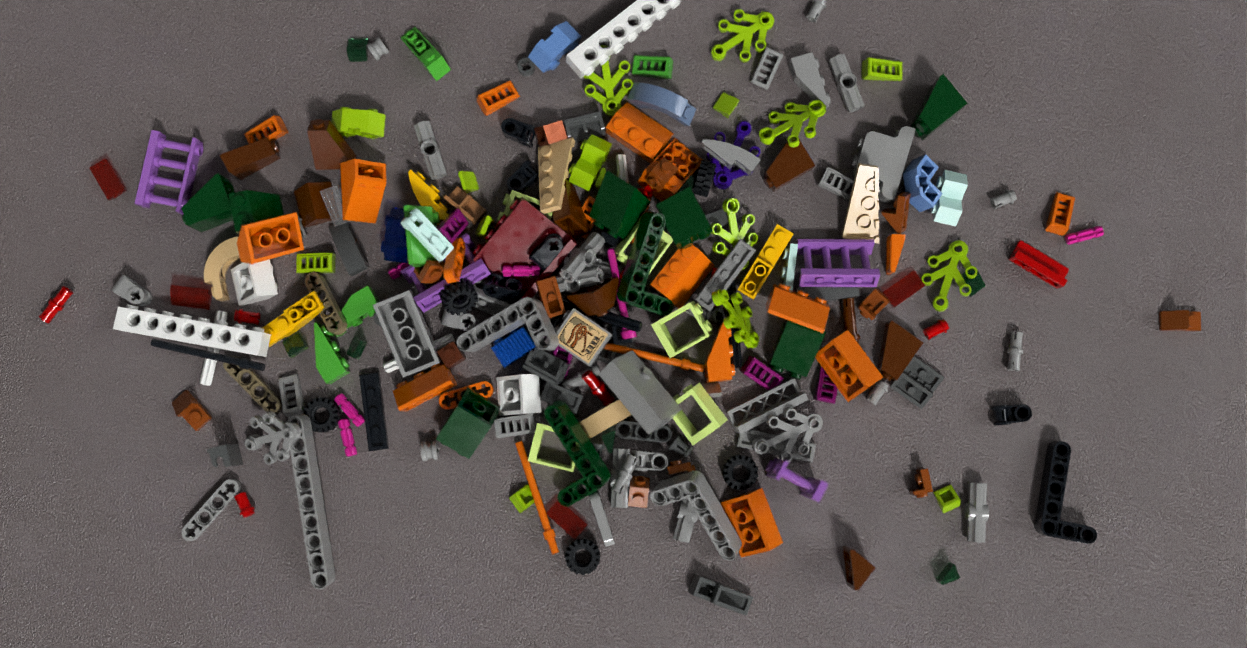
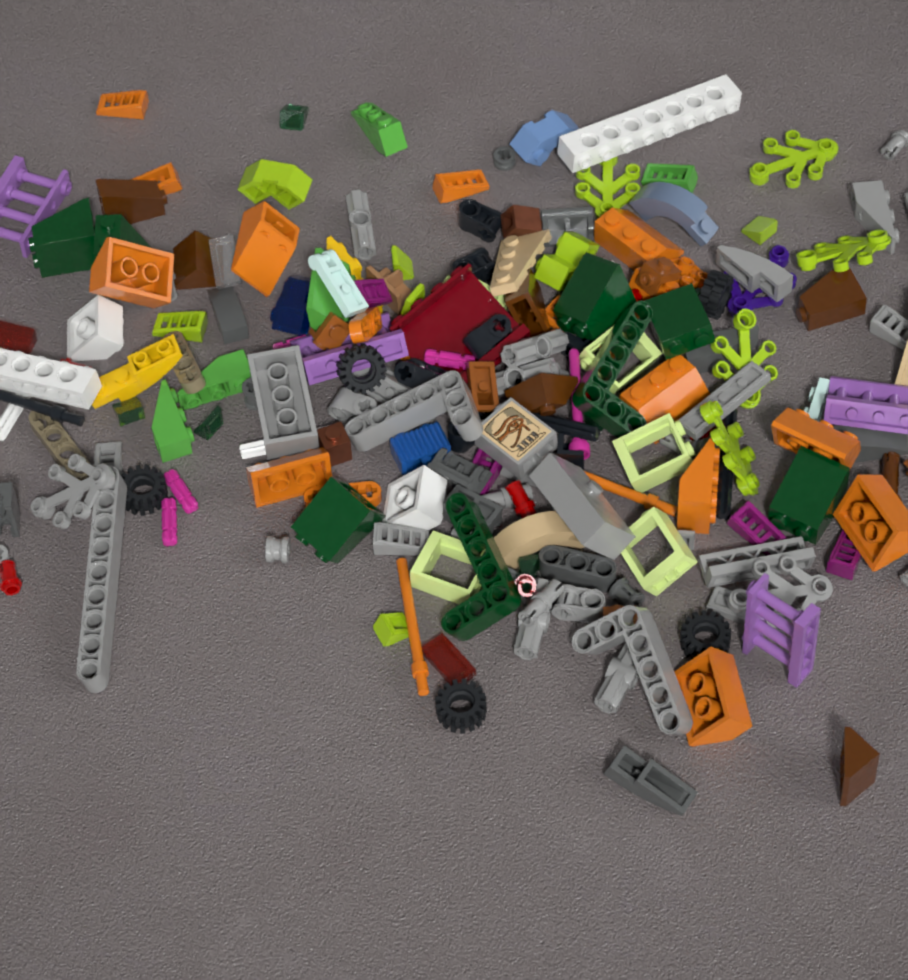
camera: 15 degrees right, 30 degrees down
(217, 267) = (56, 306): tan arch -> none
(237, 64) = (136, 106): none -> orange slope
(328, 145) = (229, 194): reddish brown slope -> none
(374, 411) = (212, 499): black tile -> none
(377, 48) = (319, 115): light grey wheel -> none
(601, 519) = (497, 663): light grey beam -> none
(611, 461) = (525, 578): none -> pin
(639, 491) = (556, 641): bracket -> none
(765, 261) = (790, 393): yellow slope -> none
(774, 54) = (829, 181): light grey slope -> none

